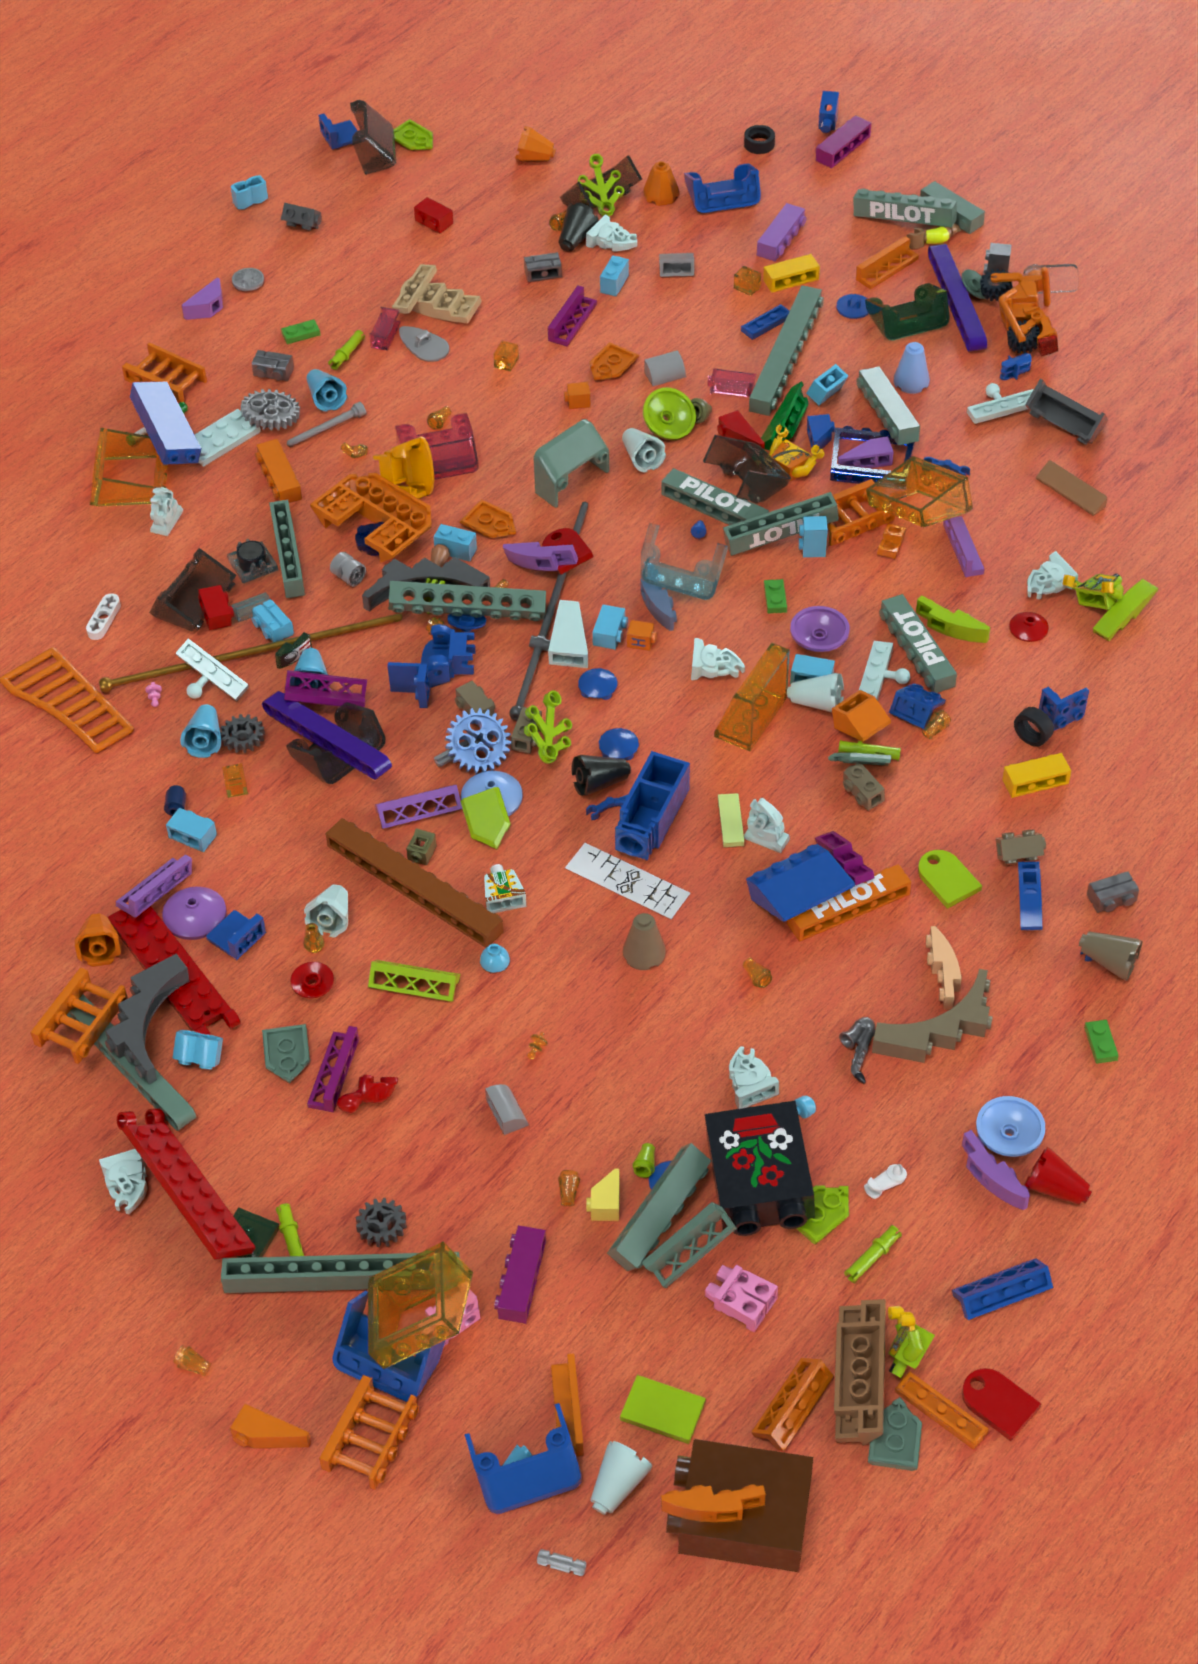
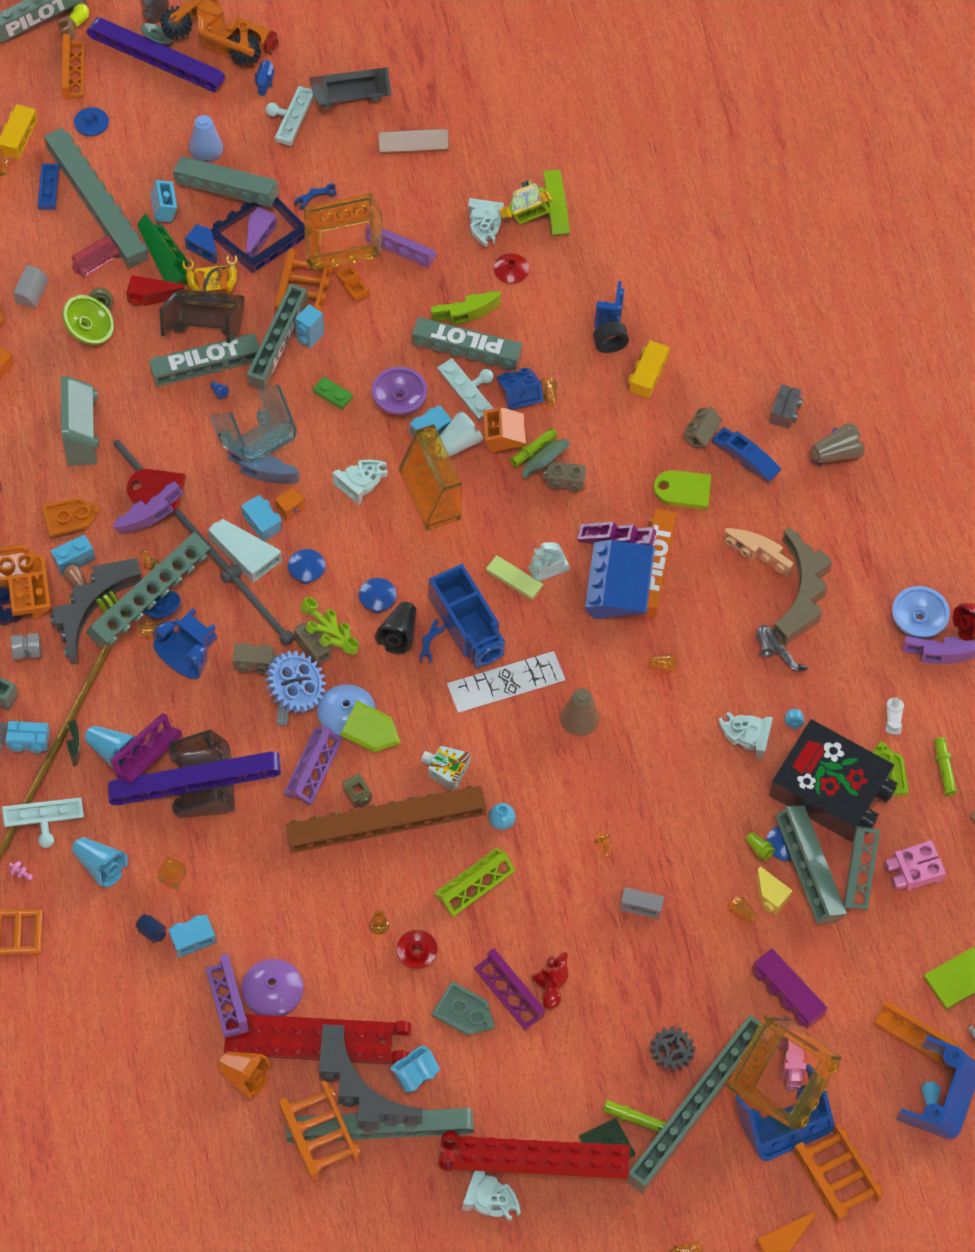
camera: 55 degrees left, 10 degrees up
(237, 933) = (324, 971): blue bracket -> none
(242, 733) = (136, 832): dark grey gear -> none
(329, 911) = (365, 892): light aqua cone -> none
(410, 679) = (195, 677): blue bracket -> none
(644, 449) = (103, 363): light aqua cone -> none
(924, 314) = (144, 94): clear green windscreen -> none
(1101, 1041) = (892, 509): bright green plate -> none

